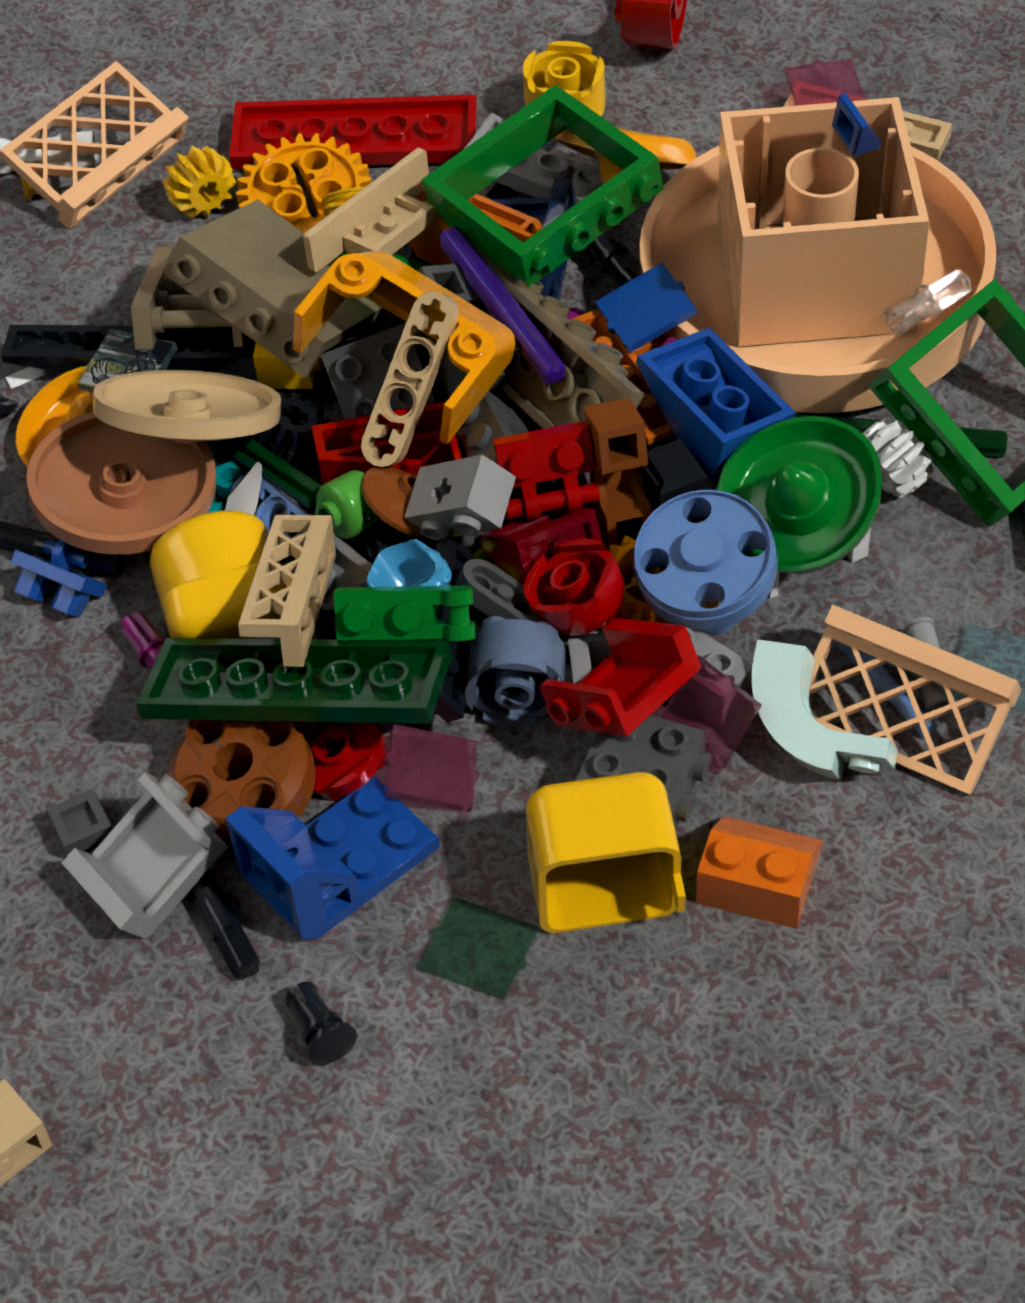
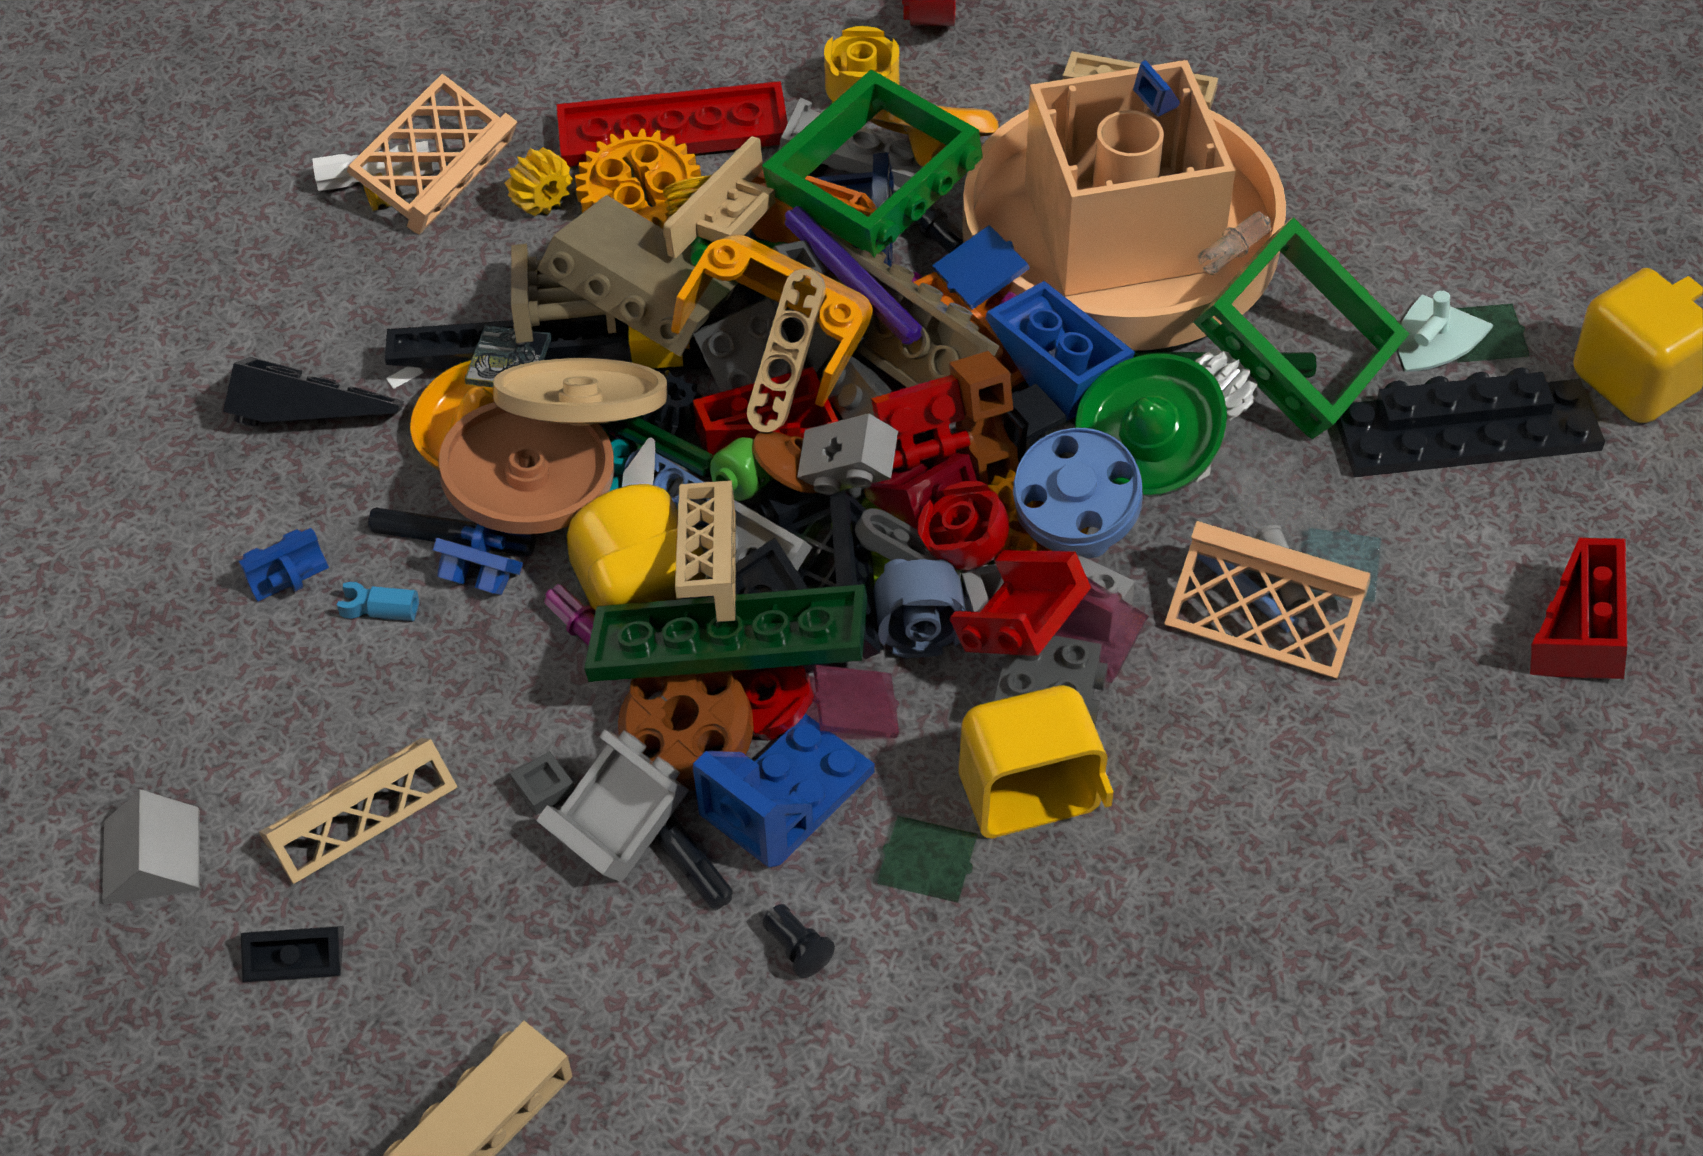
camera: 10 degrees left, 0 degrees up
(403, 613) = (819, 563): green plate -> none
(409, 565) = (815, 533): dark azure hair -> none
(757, 871) = (1166, 765): orange slope -> none
(782, 686) = (1160, 596): light aqua arch -> none
(823, 82) = (1099, 51): clear pink piece -> none

